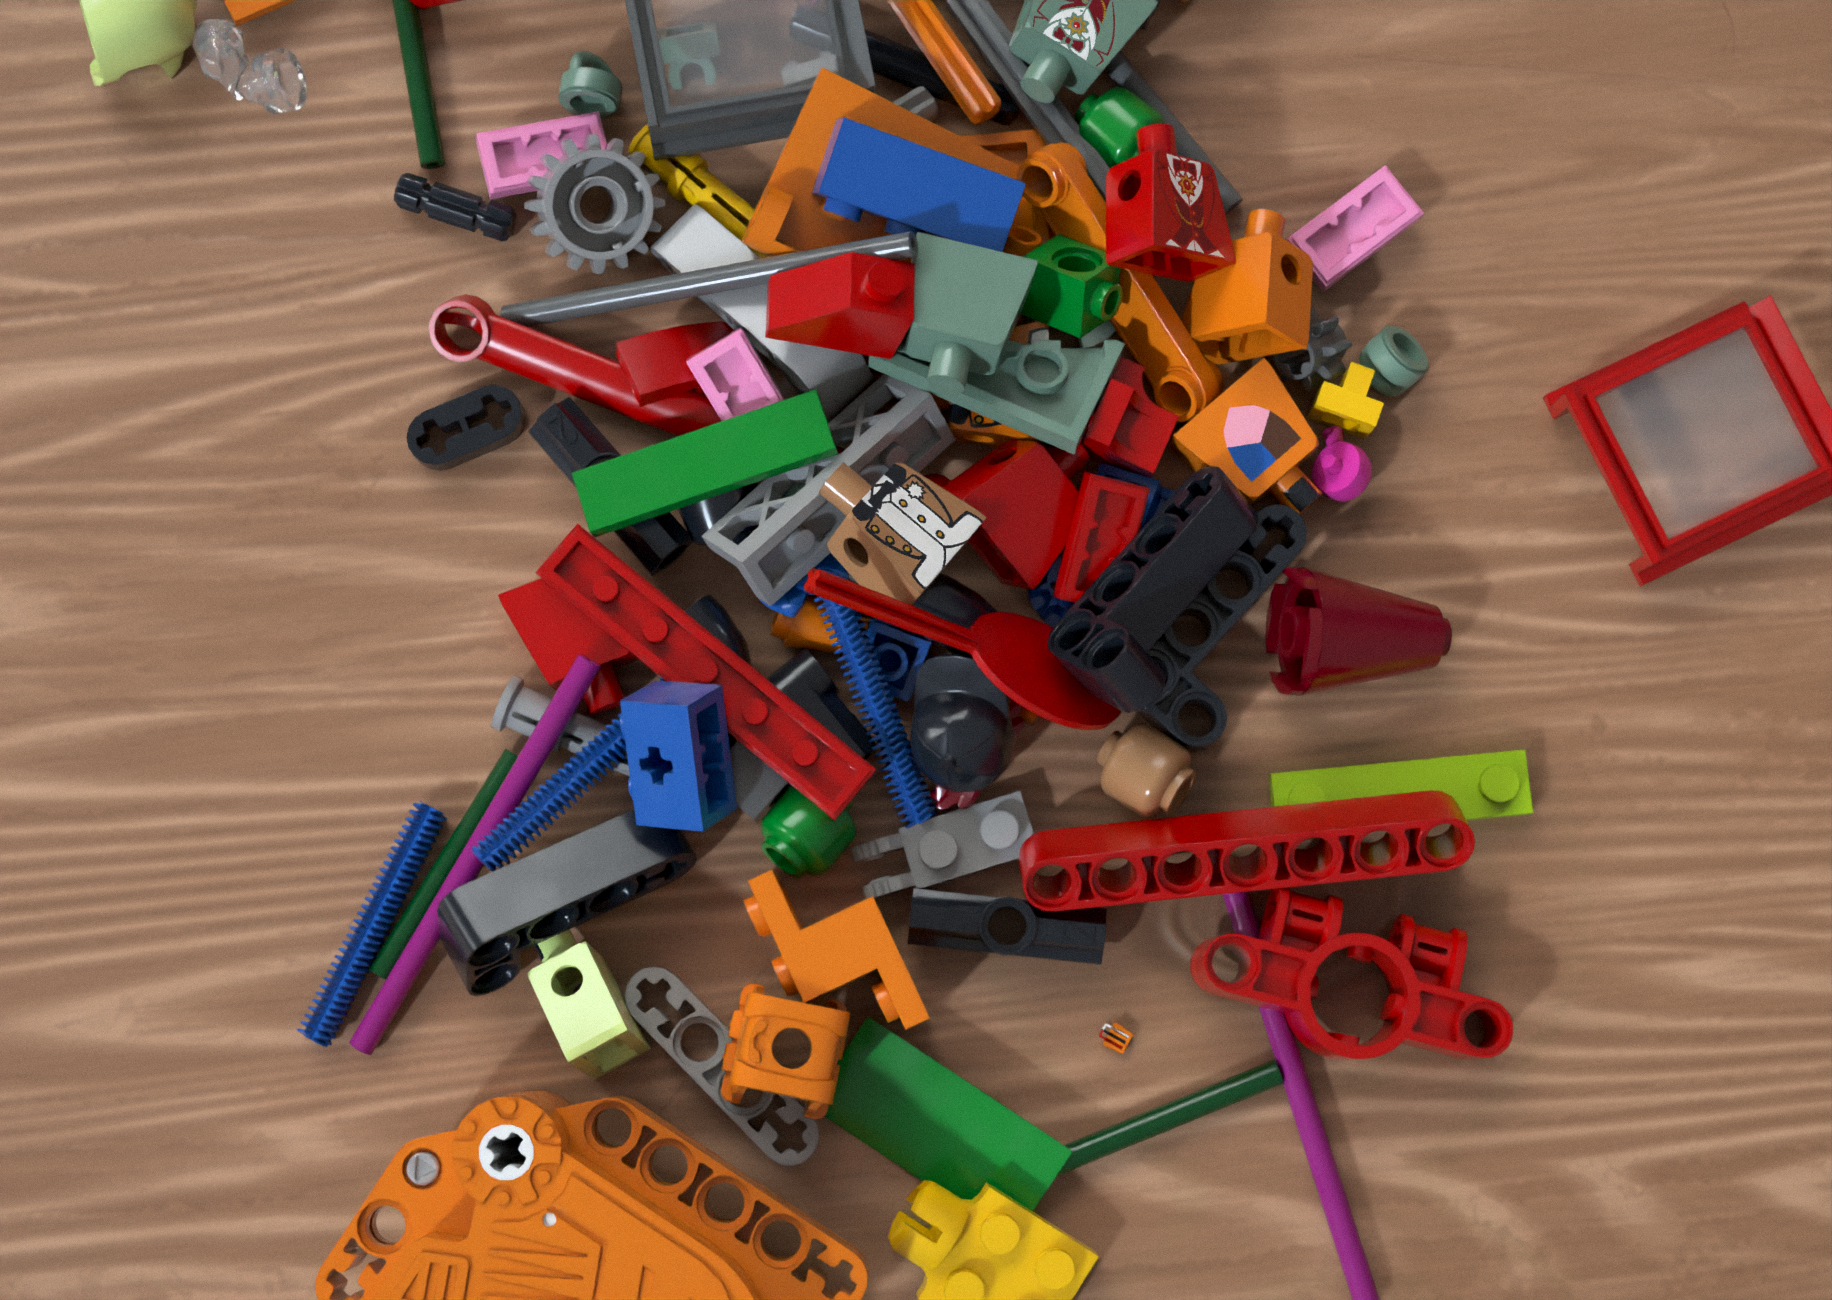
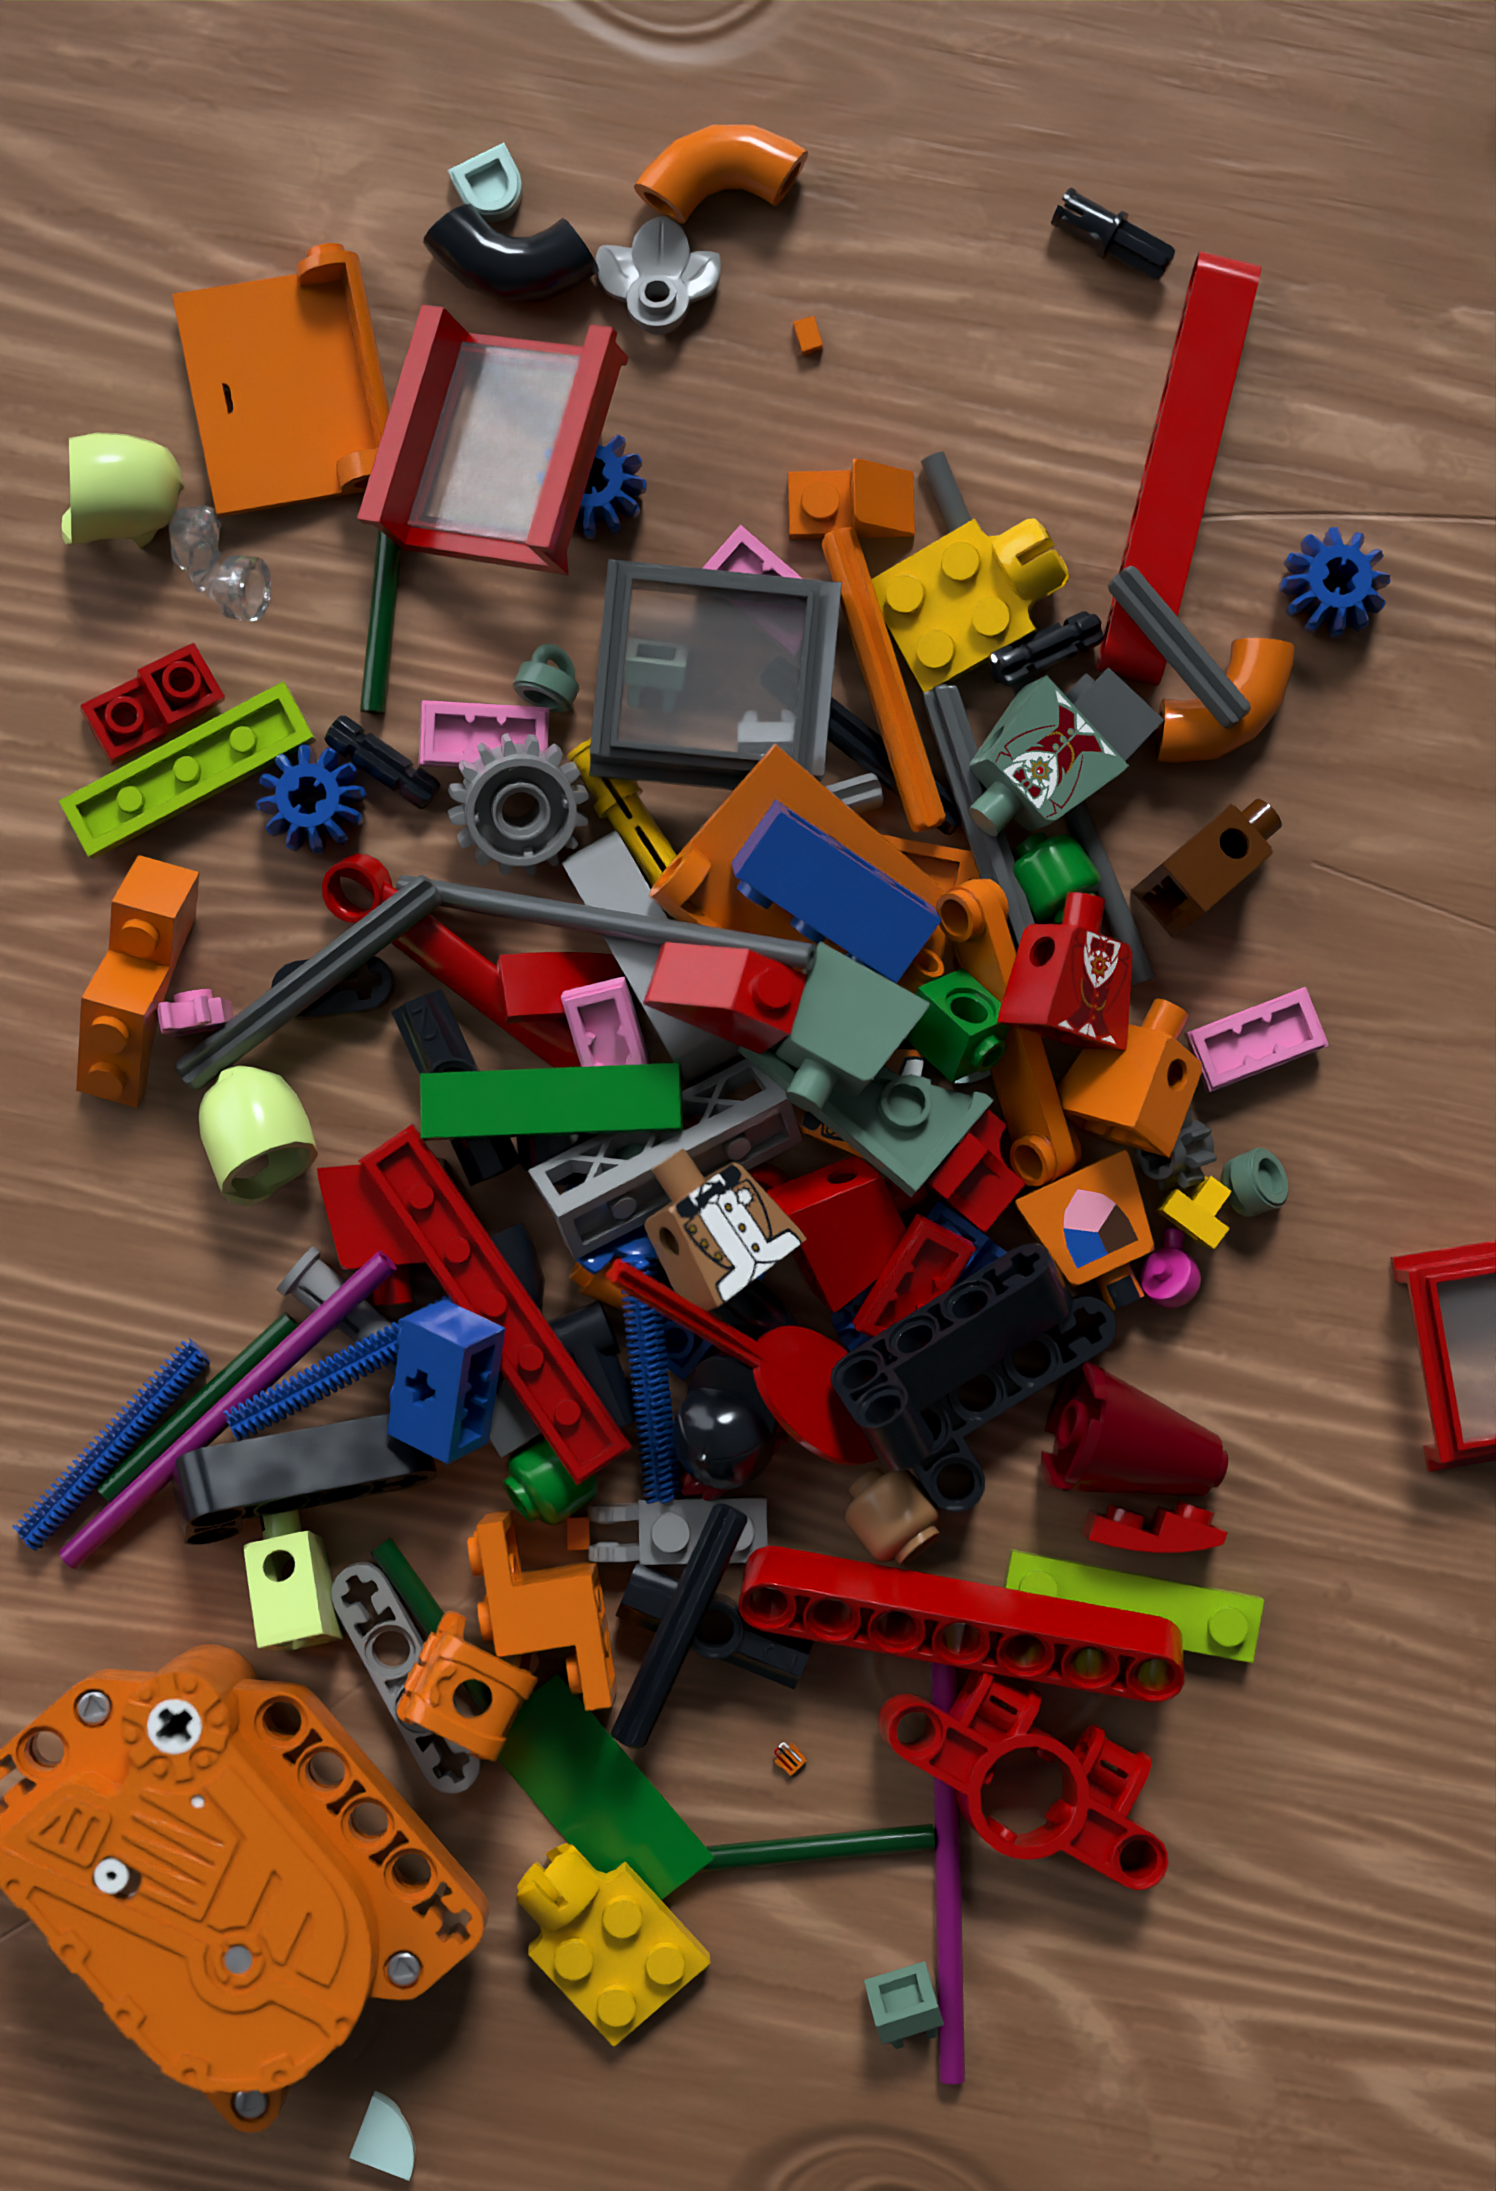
camera: 15 degrees right, 5 degrees up
(223, 217) = (152, 704): none -> red slope
(269, 482) = (121, 1002): none -> orange arch
(272, 265) = (187, 770): none -> lime plate
(340, 488) = (193, 1013): none -> bright pink plate
(374, 257) = (294, 787): none -> blue gear
(425, 560) = (253, 1116): none -> yellowish green piece
(441, 425) = (309, 982): none -> dark grey axle
(723, 996) = (421, 1604): none -> dark green piece
(849, 879) = (578, 1533): none -> orange piece
(972, 929) = (679, 1626): none -> black axle
(1258, 79) = (1208, 865): none -> reddish brown torso
(1299, 1241) = (904, 2004): none -> sand green tile
(1414, 708) = (1170, 1532): none -> red slope

